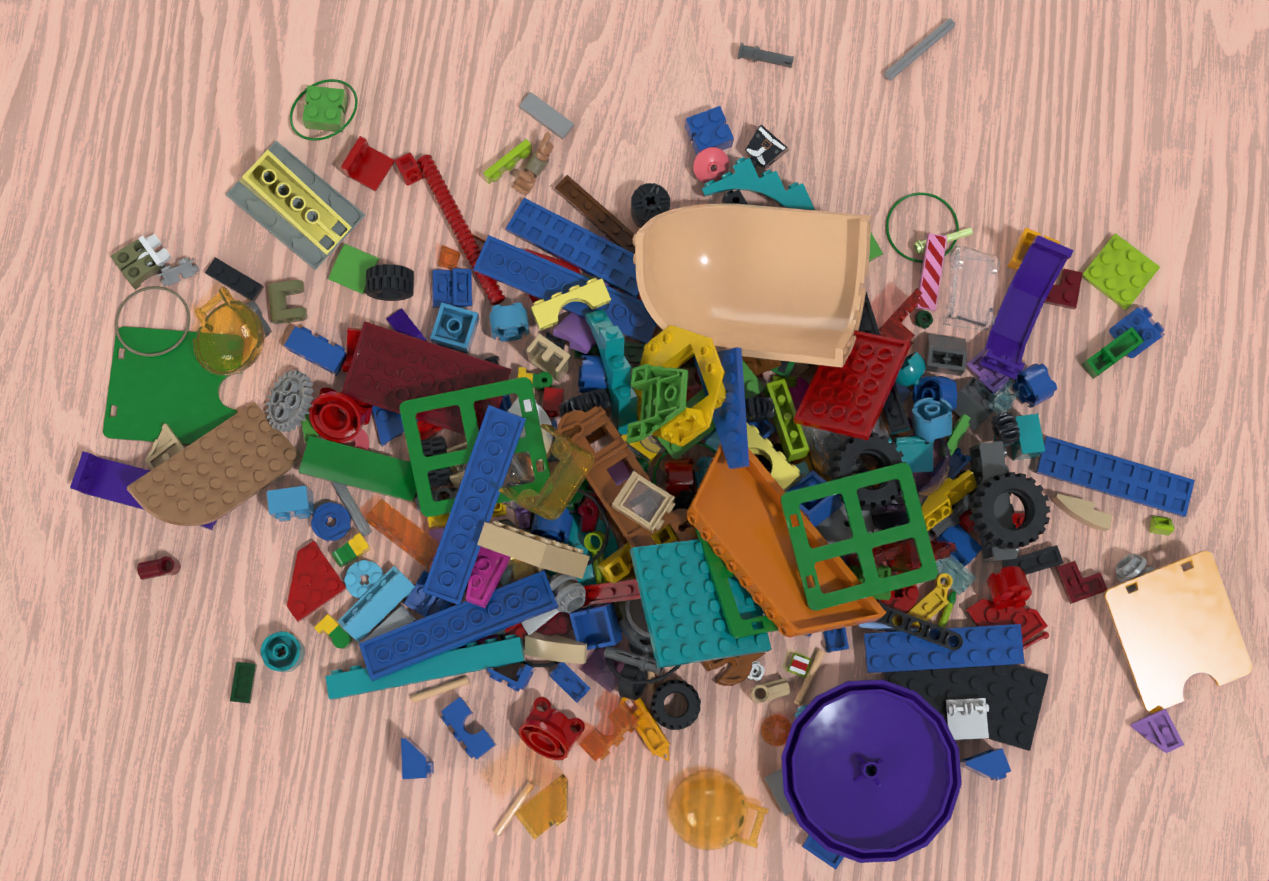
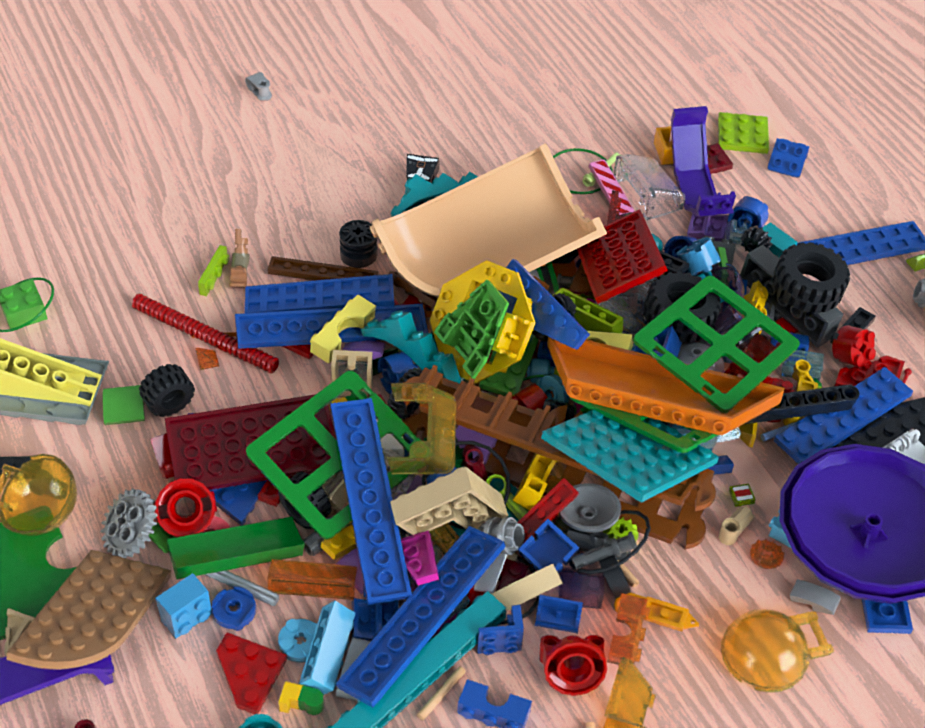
camera: 30 degrees left, 30 degrees down
(278, 303) = (71, 445): olive connector -> none
(316, 350) = (117, 478): blue brick -> none
(351, 550) = (271, 619): leg -> none
(366, 165) = (86, 328): red bracket -> none
(409, 169) = (128, 311): red bracket -> none
(452, 287) = (225, 378): blue slope -> none
(455, 328) = (248, 390): dark azure brick -> none
(509, 322) = (296, 371): dark azure brick -> none
(546, 115) = (223, 230): light grey tile -> none
(643, 502) = (523, 407): window -> none
(691, 697) = (671, 564): black tyre -> none
(707, 158) = (381, 200): coral dish -> none
(709, 130) = (368, 181): blue piece -> none
(756, 54) = (368, 124): dark grey pin -> none
(759, 673) = (711, 517): white plate -> none
(809, 677) = (759, 500): light nougat bar -> none
(836, 640) = (749, 453): blue hinge -> none
(919, 49) = (487, 74): light grey axle -> none
(945, 354) = (670, 228): dark grey slope -> none
(1078, 587) = (898, 327): dark red plate -> none
(1083, 512) = (866, 278): tan slope -> none
(1112, 352) = (783, 176): green slope -> none

